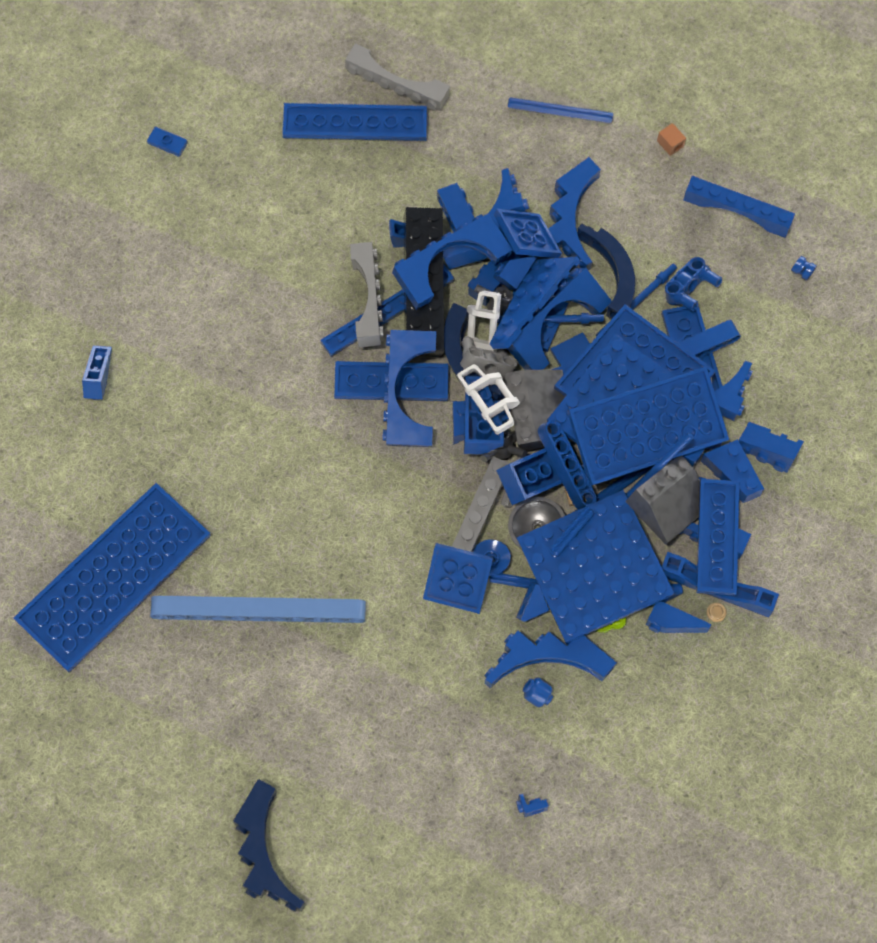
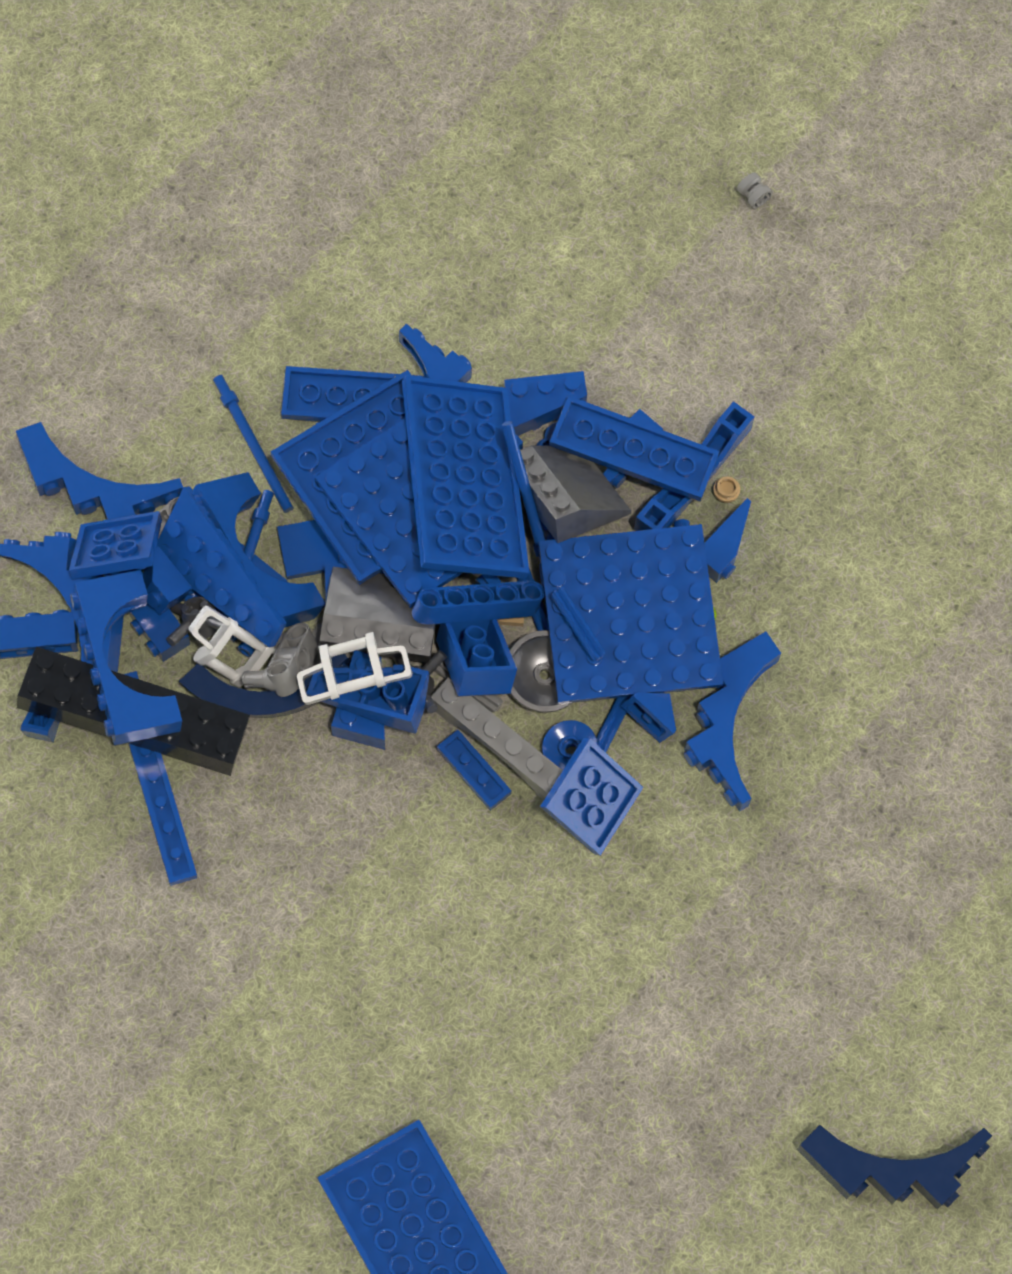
camera: 75 degrees left, 0 degrees up
(96, 372) = (111, 1221): blue slope -> none
(258, 609) = (550, 1086): medium blue beam -> none
(368, 328) = (63, 786): light grey arch -> none
(404, 347) = (236, 766): blue arch -> none
(413, 382) = (265, 804): blue plate -> none
(455, 501) = (474, 770): none -> blue plate
(534, 807) = (928, 796): blue bracket -> none
(537, 692) = (775, 744): blue head -> none
(619, 262) = (200, 444): dark blue arch -> none
(671, 139) = (24, 317): nougat panel -> none
(687, 280) = (248, 368): blue piece -> none
(712, 195) = (131, 294): blue arch -> none
(712, 339) = (350, 364): blue beam -> none
(769, 447) = (524, 346): blue wedge -> none
(799, 267) = (279, 217): blue wheel -> none

